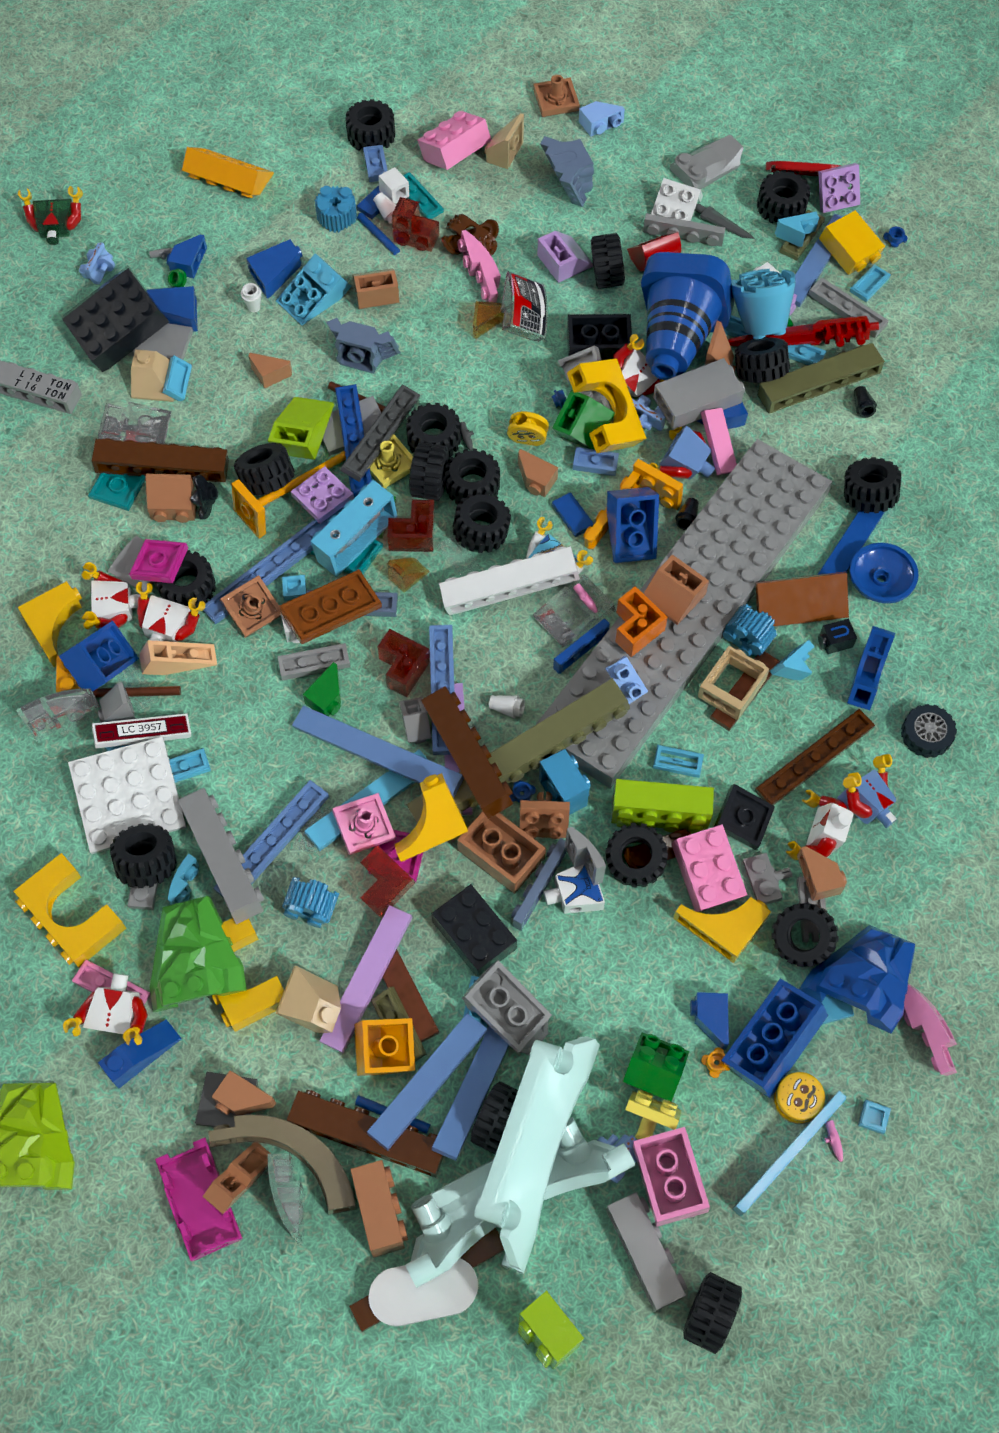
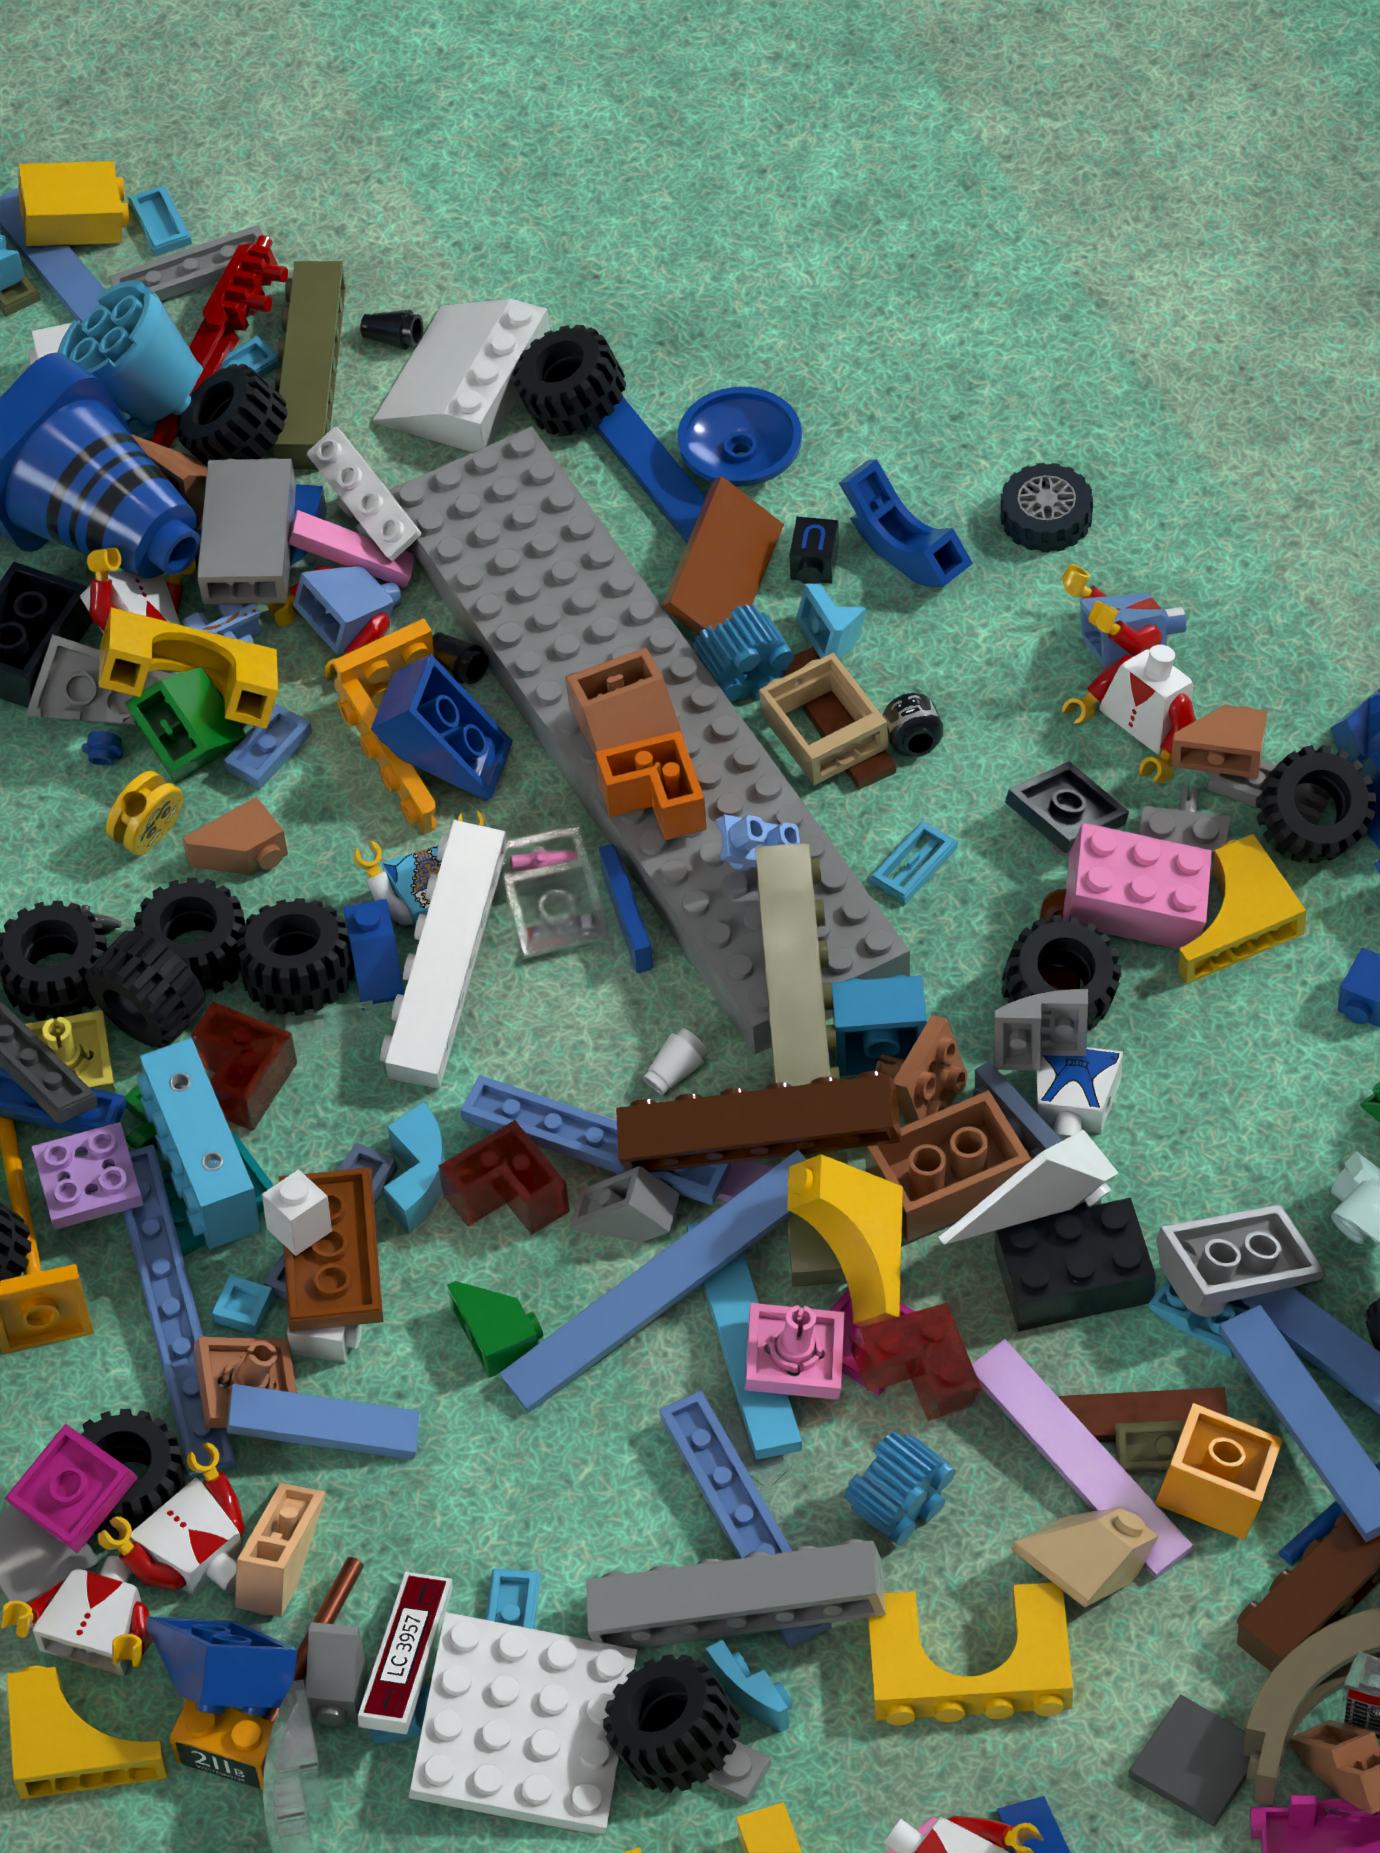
camera: 60 degrees left, 10 degrees down
(193, 956) = (913, 1704): bright green wedge -> none
(240, 1096) = (1205, 1718): nougat slope -> none
(243, 645) = (322, 1422): none -> medium blue tile
(313, 661) = (416, 1328): light grey plate -> none
(332, 581) = (297, 1212): none -> white brick
(406, 572) = (322, 1118): clear orange slope -> none
(406, 623) = (419, 1145): none -> medium azure brick
(499, 899) = (1045, 1186): none -> white slope
(504, 550) = (374, 951): none -> blue slope
(572, 514) = (352, 824): blue tile -> none
(662, 805) = (994, 905): lime brick -> none
(751, 431) = (363, 494): none -> white bracket
(756, 725) = (913, 724): none -> black head
(814, 757) = (1008, 675): reddish brown tile -> none
(845, 440) = (462, 373): none -> white slope
(895, 236) = (91, 144): blue plate -> none

